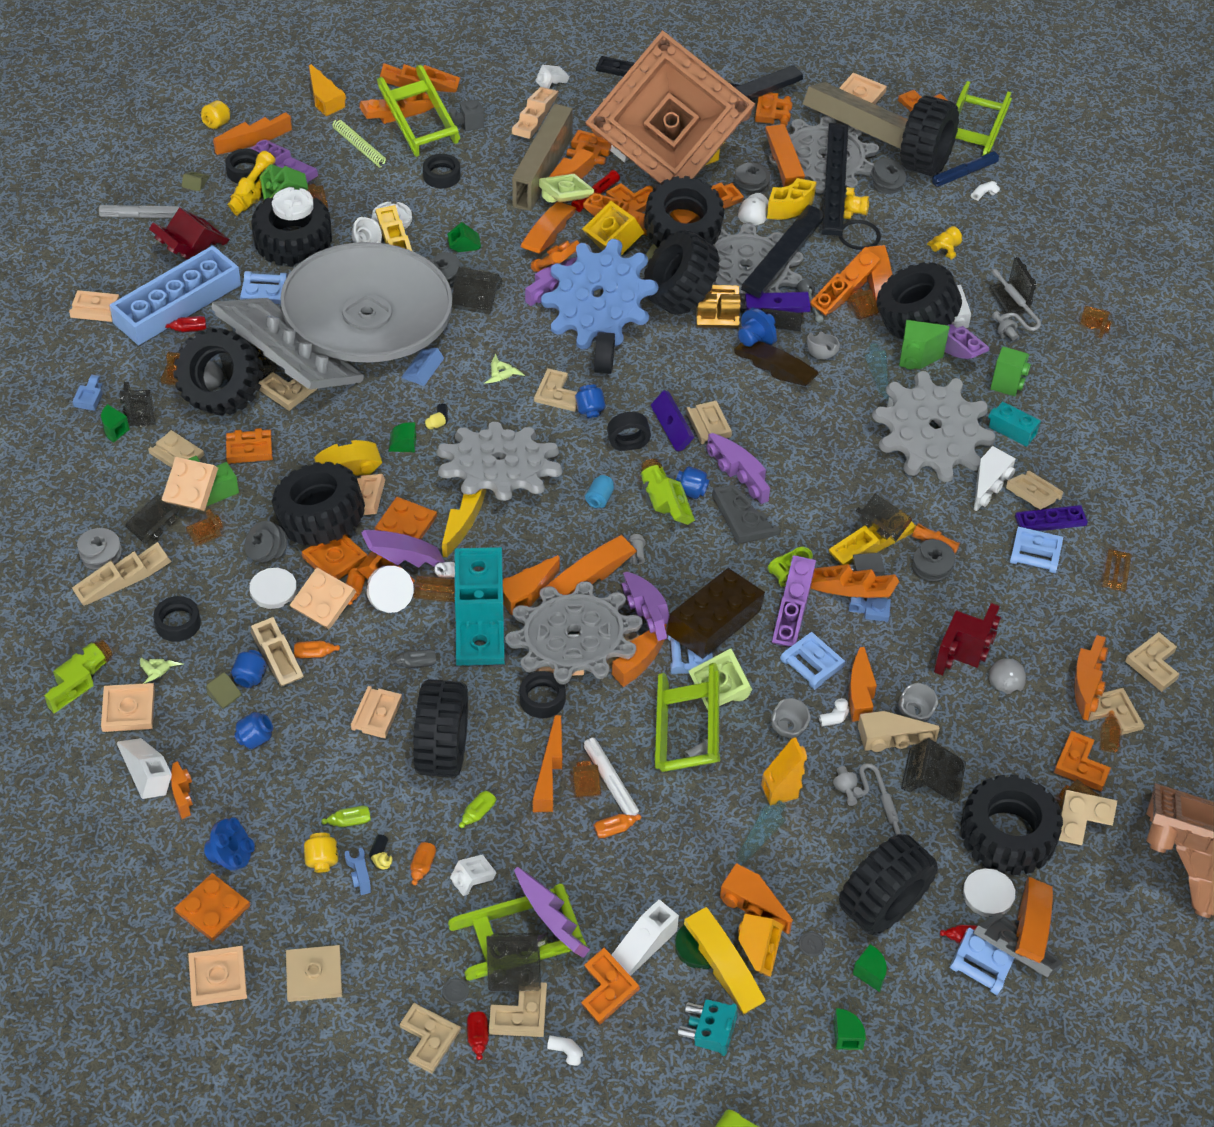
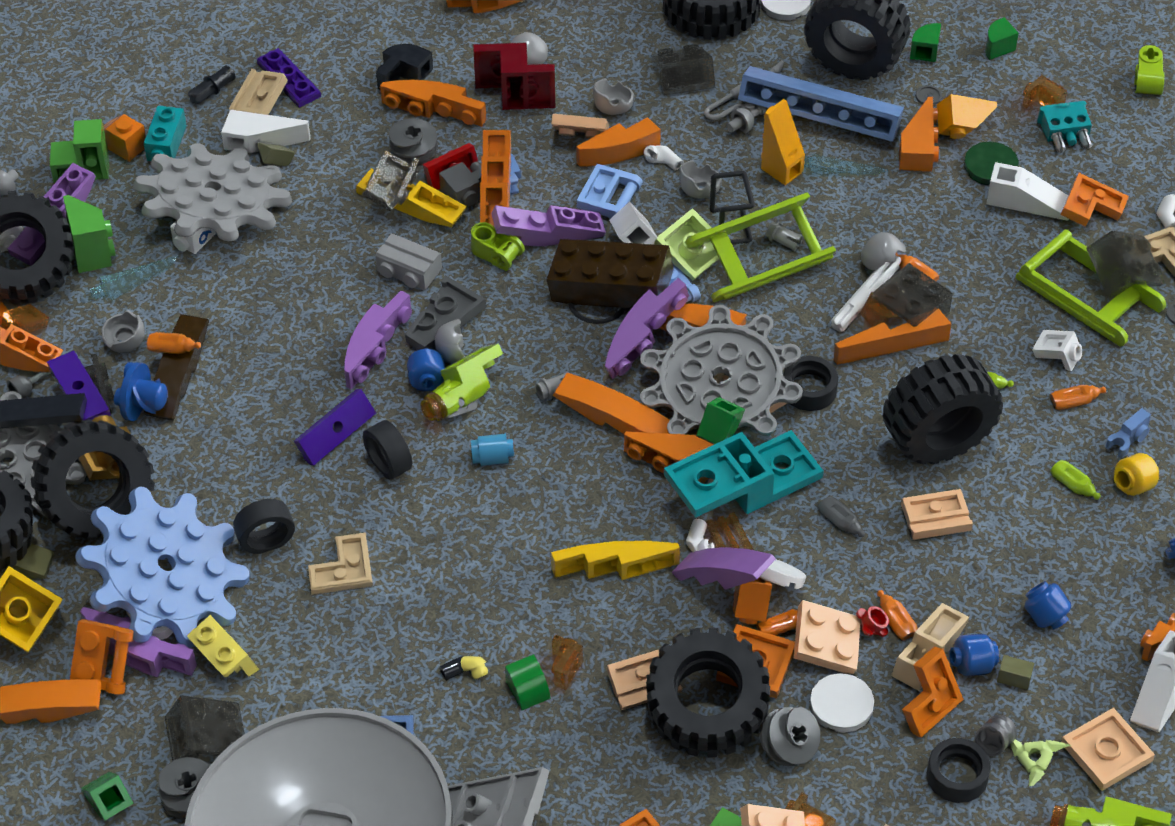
camera: 115 degrees left, 0 degrees up
(181, 645) = (996, 735): none -> flat silver wheel
(236, 626) = (938, 695): none -> orange plate
(313, 626) = (873, 621): none -> red plate
(359, 456) = (606, 715): yellow brick -> none
(378, 854) = (1096, 433): arm -> none
(403, 463) = (567, 662): none -> clear orange bracket
(406, 519) = (652, 619): orange plate -> none
(508, 370) = (333, 632): yellowish green piece -> none
(519, 464) = (515, 586): light grey plate -> none
(526, 311) = (221, 648): none -> light yellow bracket
(529, 606) = (720, 420): none -> green brick
(547, 908) = (1065, 250): medium lavender slope -> none
(577, 792) = (913, 295): none -> clear smoke bracket
(590, 401) = (350, 514): blue head -> none
(640, 800) = (881, 249): none -> light grey hair
(706, 500) = (450, 341): none -> light grey hair
(708, 419) = (314, 395): tan plate -> none
(720, 706) = (742, 207): none -> black piece
(724, 960) = (998, 136): yellow slope -> none
(752, 643) = (632, 226): none -> white brick
(756, 1030) = (1043, 91): none -> clear orange bracket
(788, 353) = (170, 343): none -> orange piece
(804, 511) = (408, 262): none -> light grey brick
(828, 838) = (821, 103): none -> medium blue brick
(889, 730) = (661, 105): tan slope -> none
(893, 666) = (570, 124): none -> light nougat plate
(897, 566) = (453, 157): none -> red tile
(923, 533) = (378, 146): orange pin -> none
(964, 479) = (275, 154): none -> olive slope
(975, 590) = (426, 97): none -> orange slope
(1026, 398) = (125, 137): none -> orange slope
(1026, 585) = (406, 62): none -> black brick
(1039, 544) = (335, 77): light blue plate -> none
(1061, 469) = (211, 85): none -> black axle
(1114, 584) = (331, 17): clear orange tile -> none

